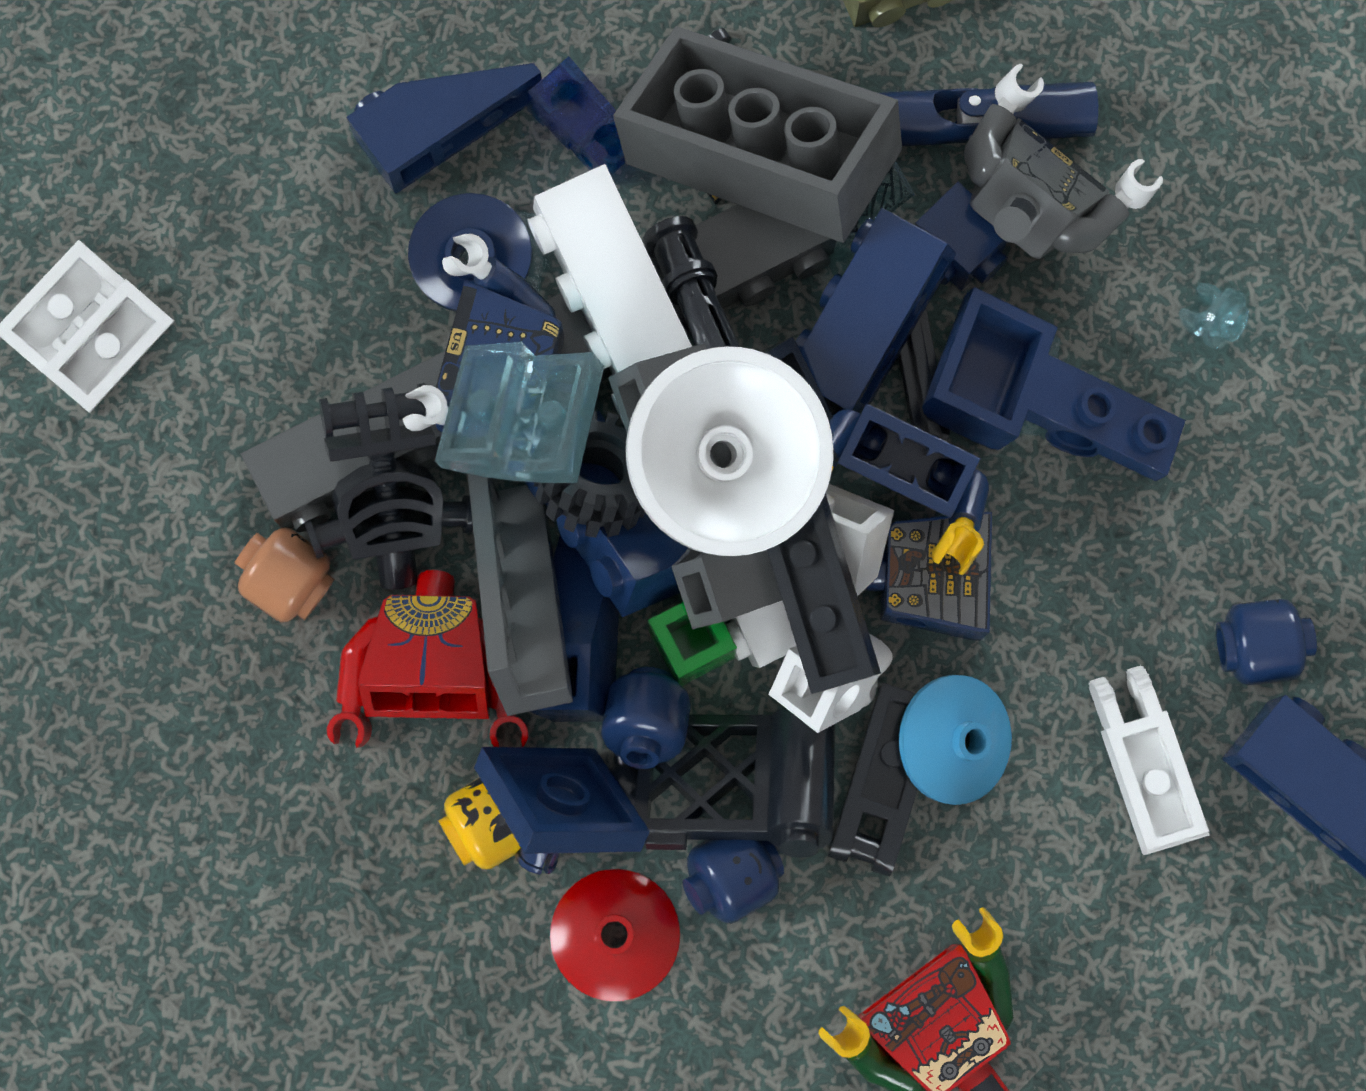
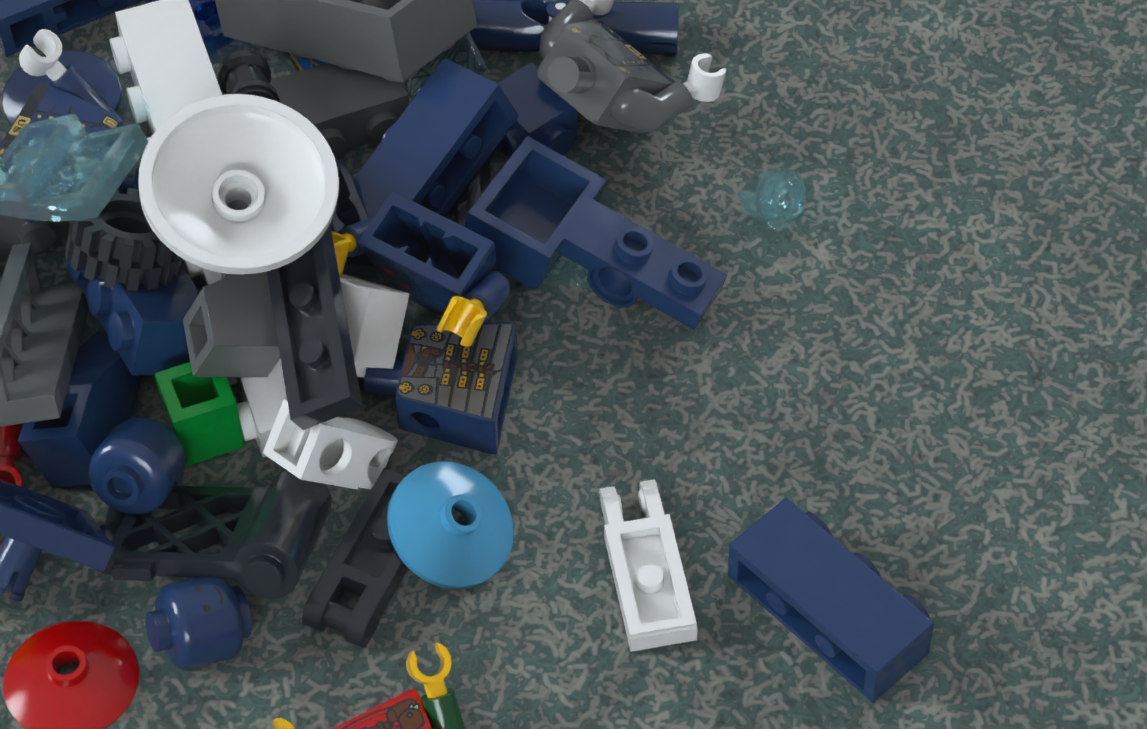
camera: 10 degrees right, 25 degrees down
(1265, 642) = (781, 464): dark blue head -> none

